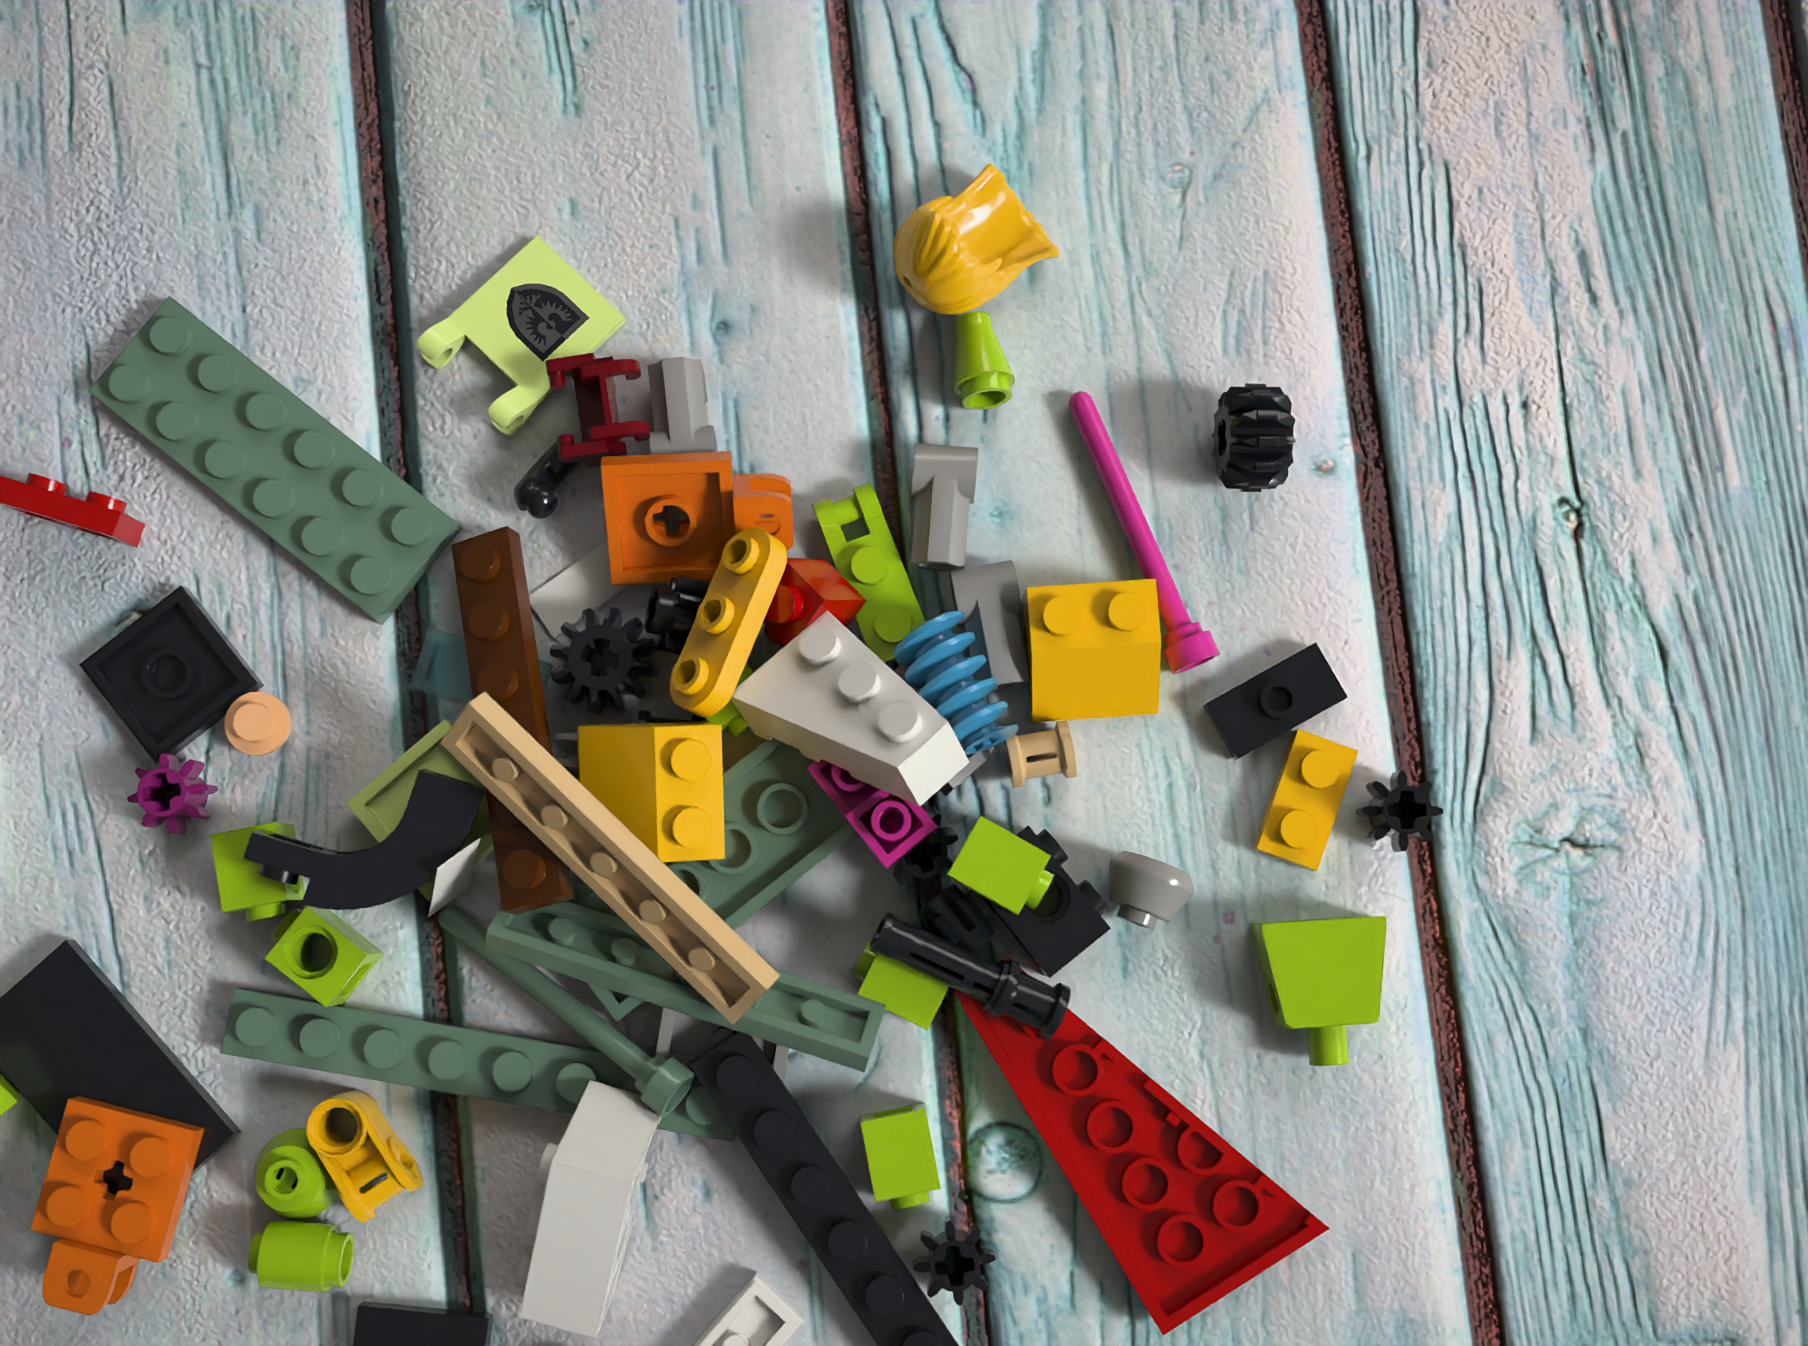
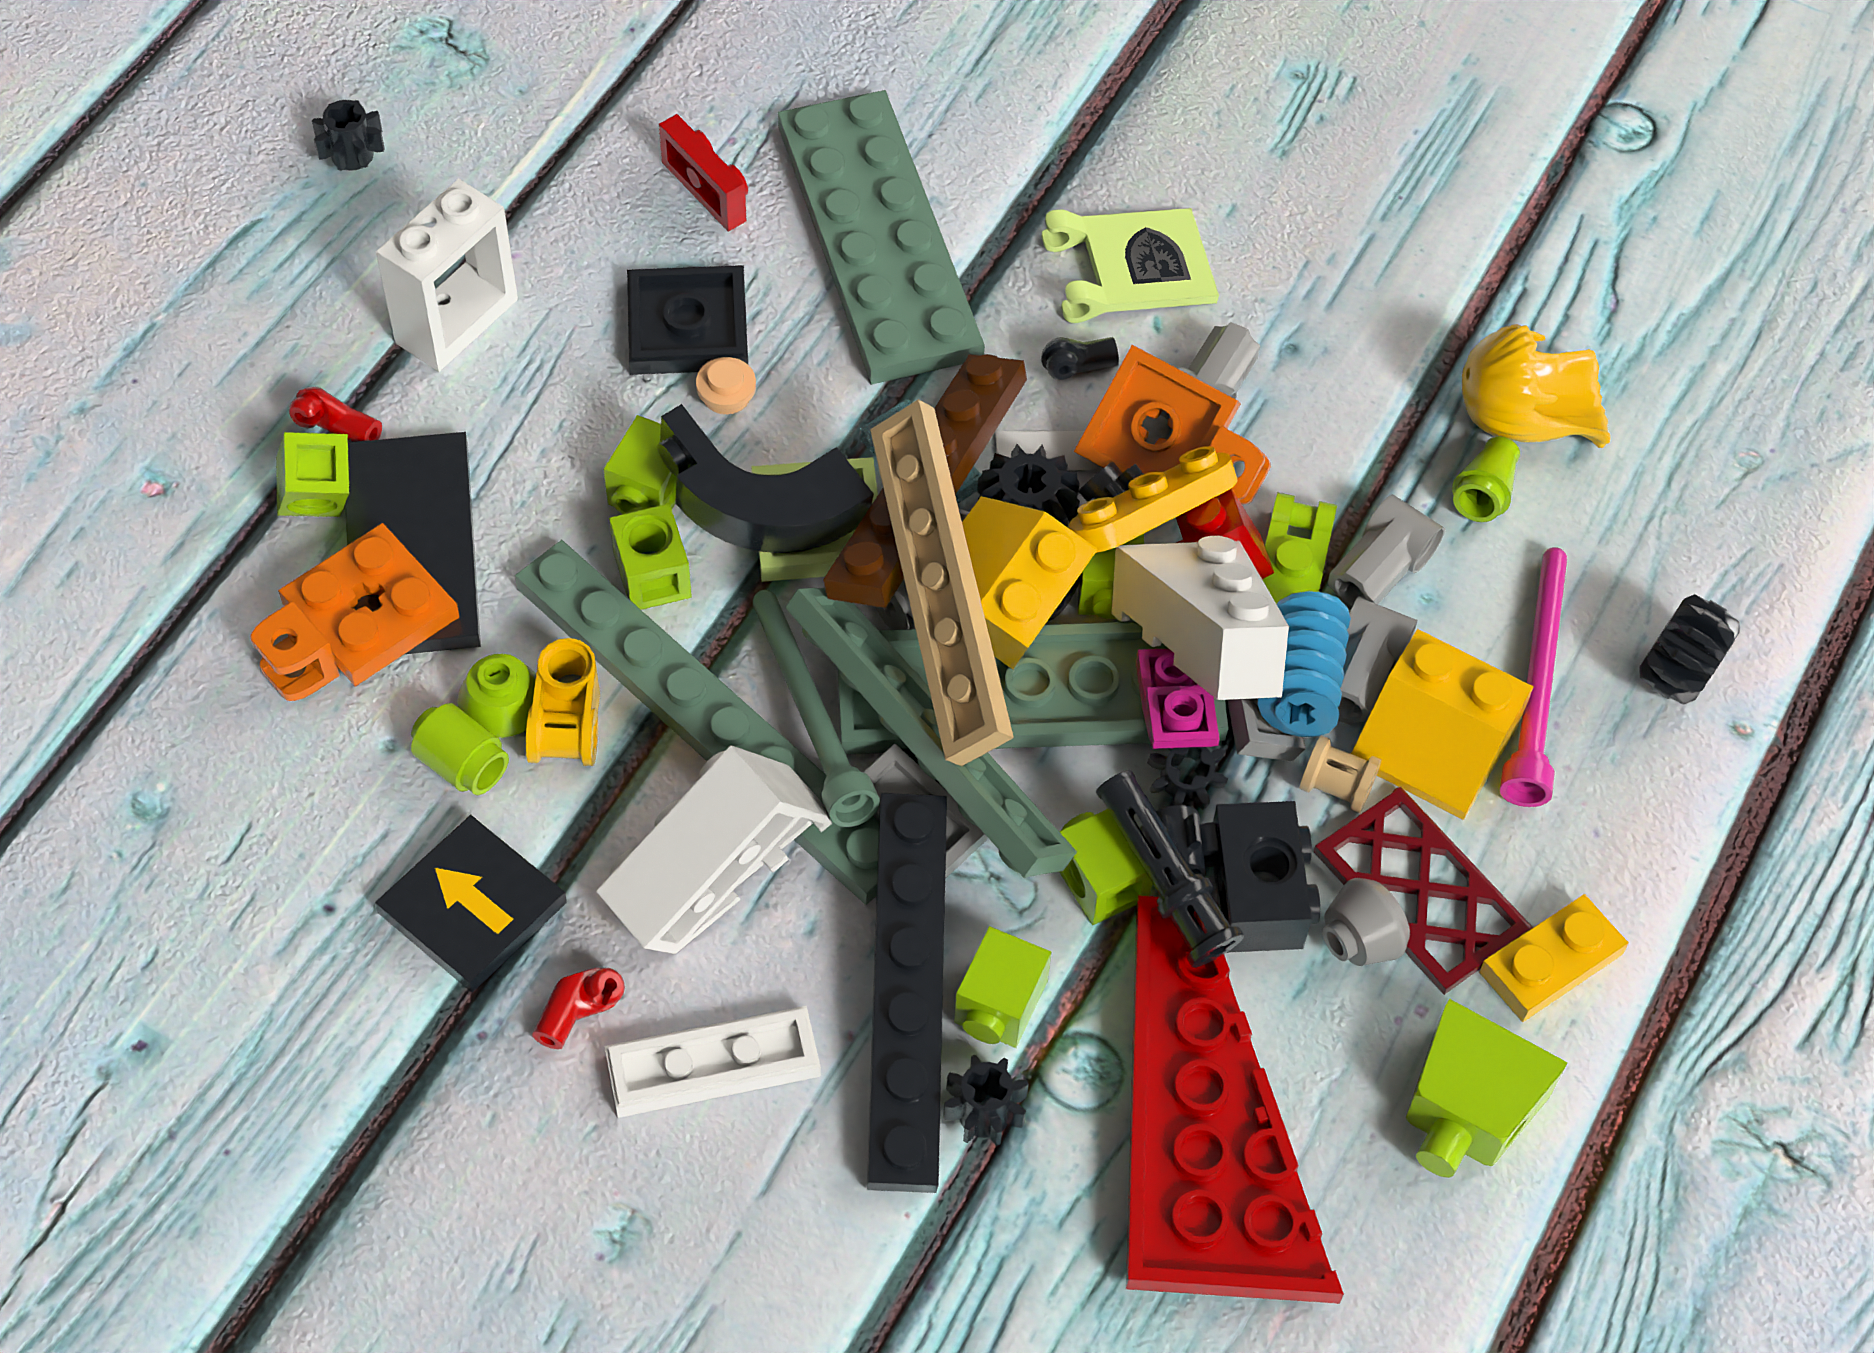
camera: 35 degrees right, 25 degrees down
(155, 784) = (626, 385): magenta gear -> none
(453, 877) = (797, 553): white sticker -> none
(596, 407) = (1160, 323): dark red piece -> none
(1001, 867) = (1250, 797): lime brick -> none
(1207, 773) = (1436, 842): none -> dark red window
(1275, 701) = (1576, 864): black plate -> none
(1406, 796) = (1627, 1024): black gear -> none

